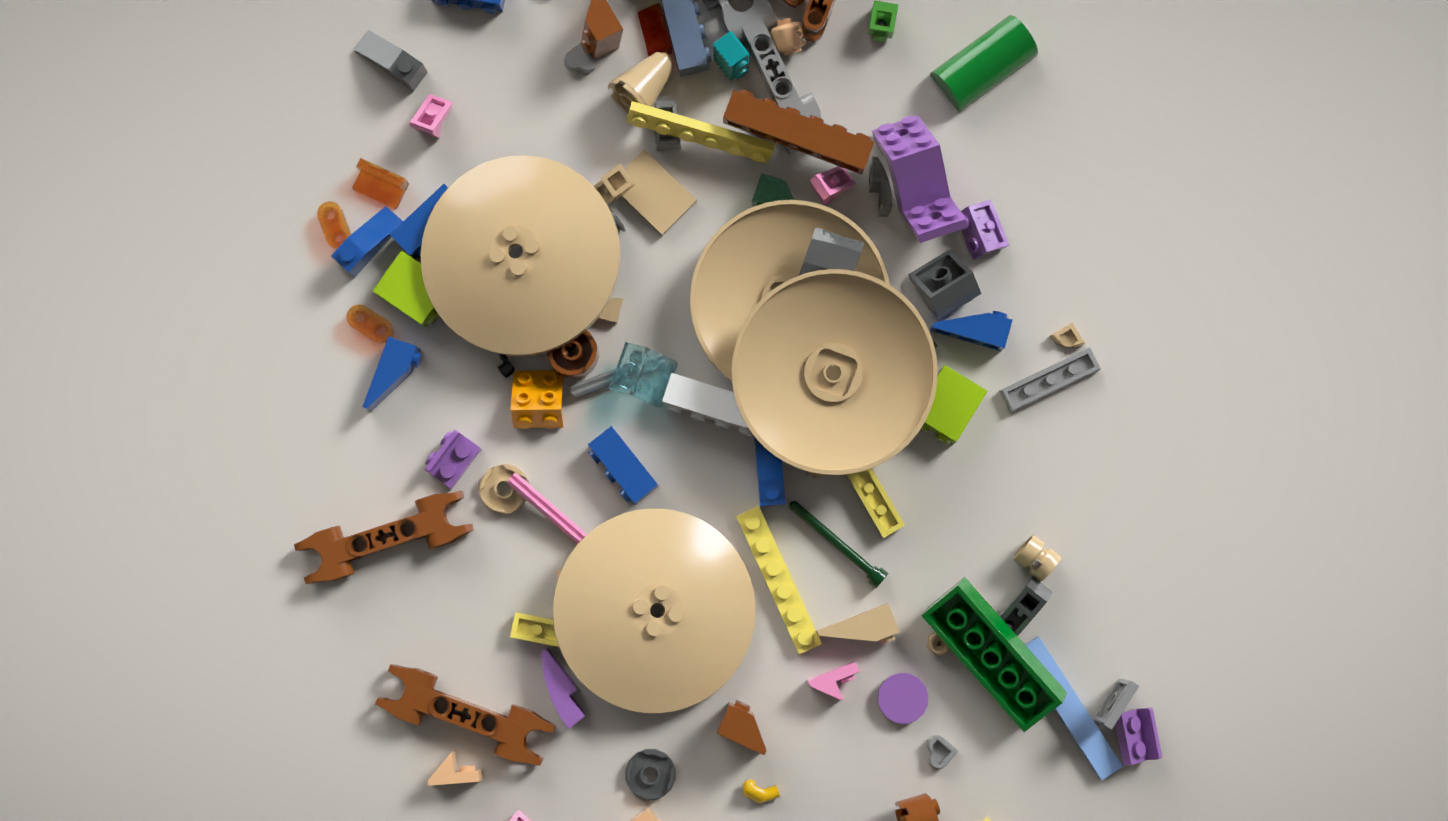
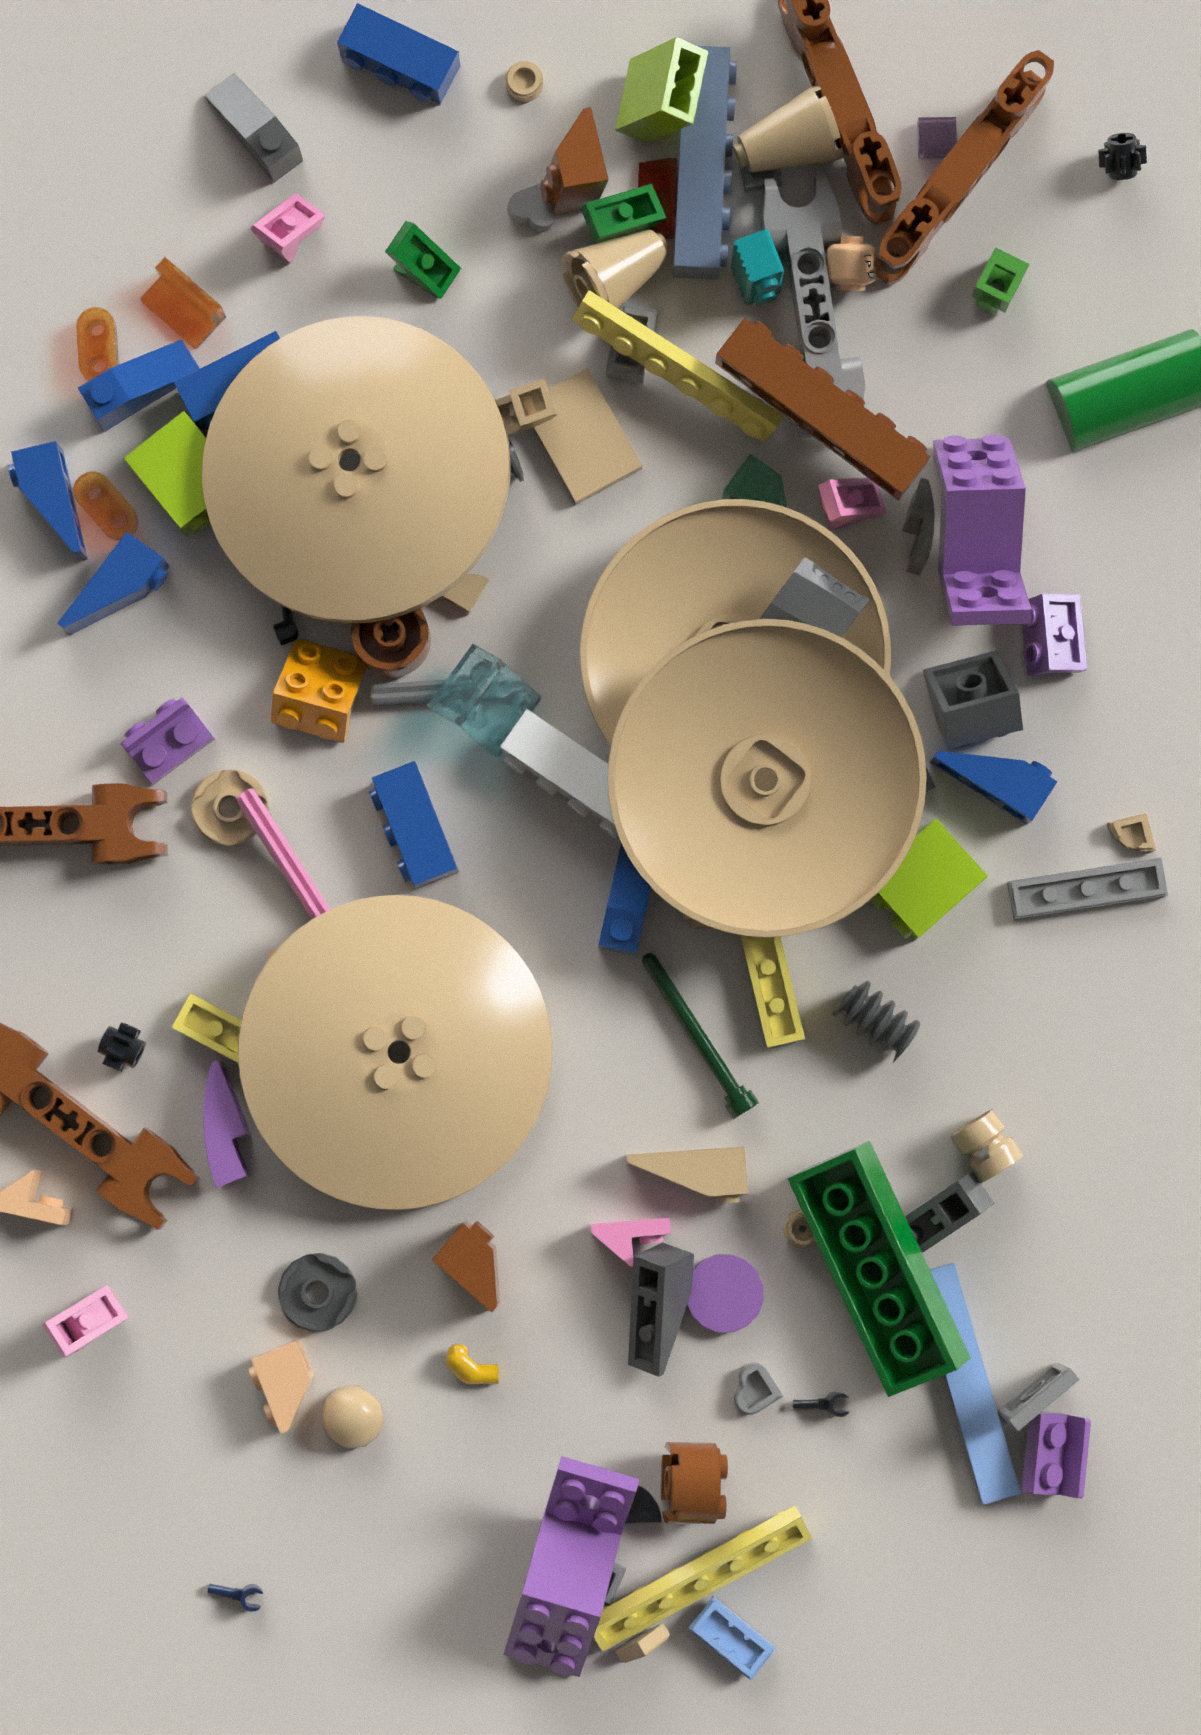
camera: 15 degrees right, 0 degrees up
(326, 319) = (45, 481): none -> blue slope
(482, 658) = (121, 1047): none -> black gear
(521, 112) = (422, 260): none -> green slope
(638, 47) = (623, 213): none -> green slope
(778, 580) = (593, 1063): light yellow plate -> none
(864, 718) = (658, 1303): none -> dark grey slope
(946, 499) = (877, 1019): none -> dark grey piece
(984, 748) = (822, 1404): none -> black hand

